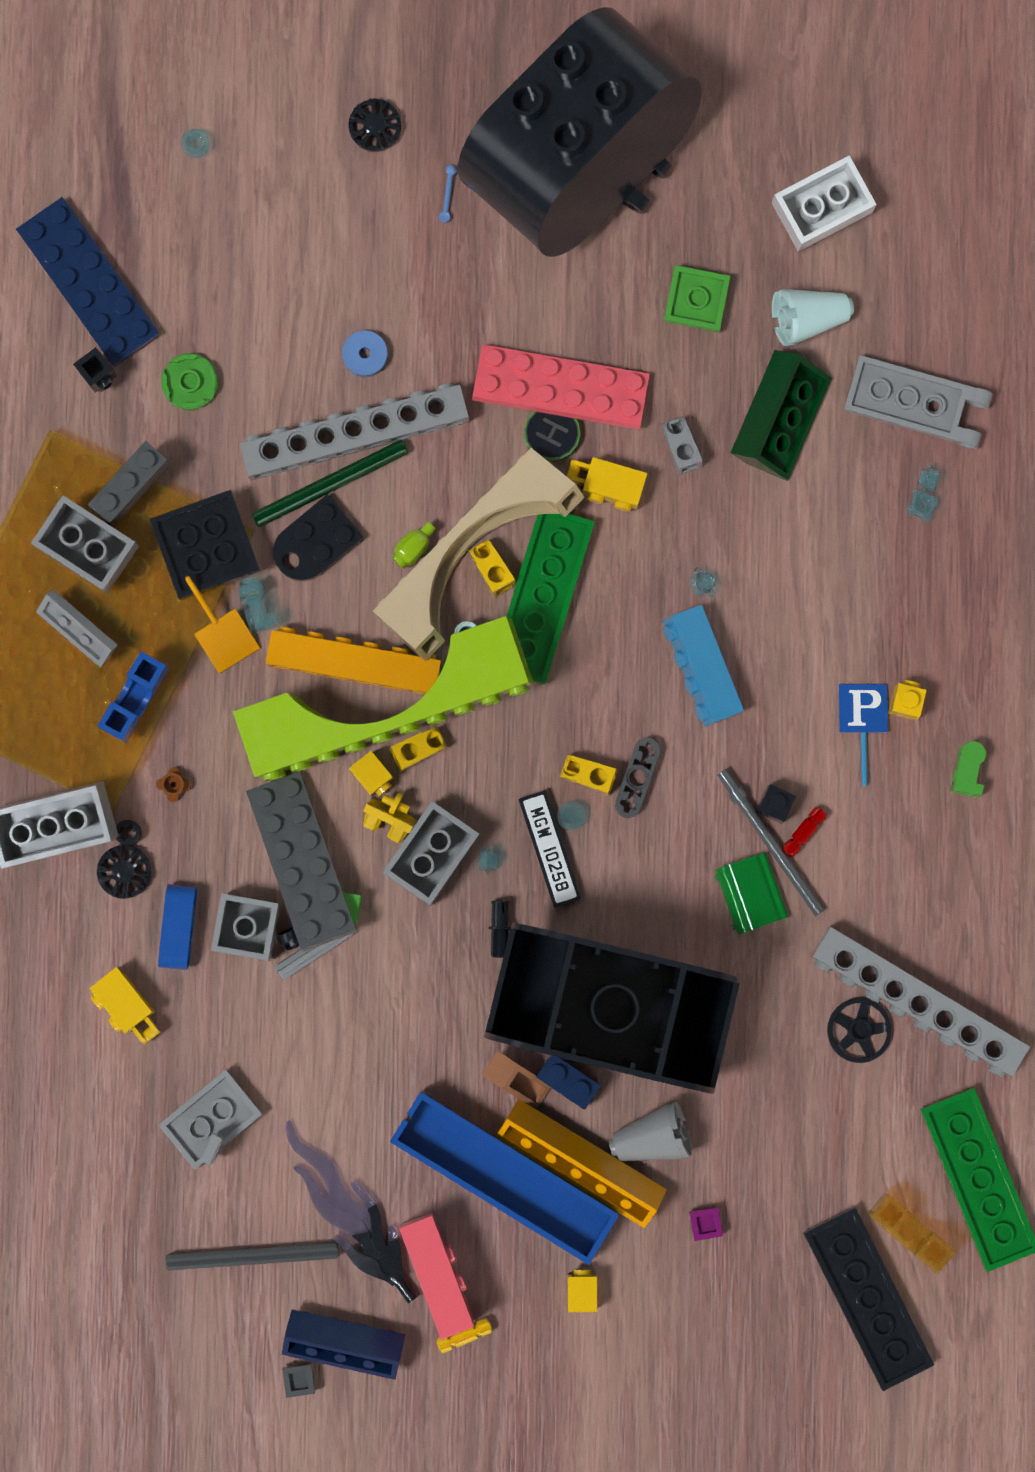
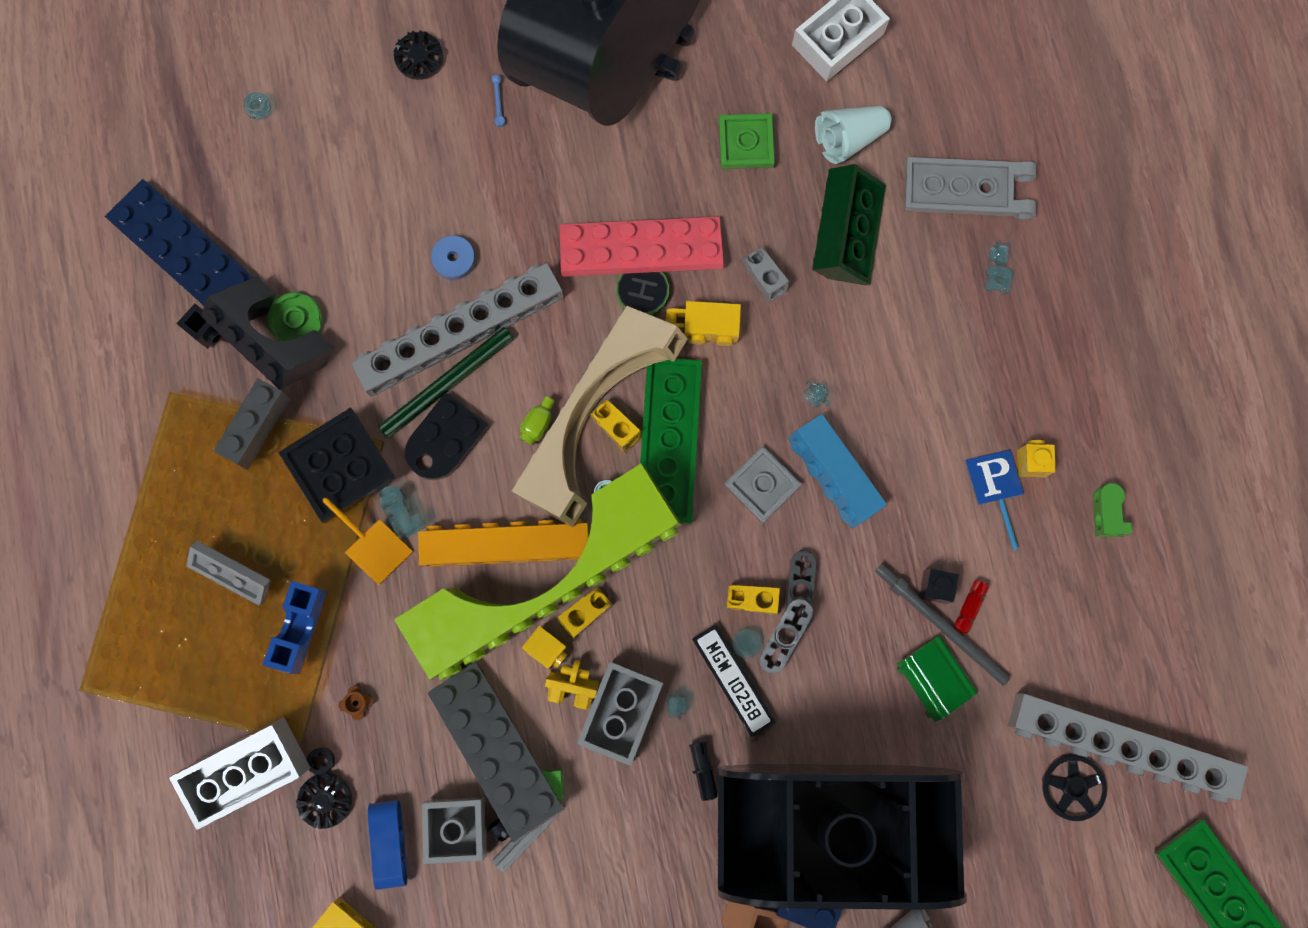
camera: 10 degrees left, 5 degrees down
(85, 544) = (219, 490): light grey brick -> none
(167, 426) = (277, 360): none -> black arch
(604, 837) = (784, 656): none -> dark grey beam
(626, 661) = (762, 484): none -> light grey tile

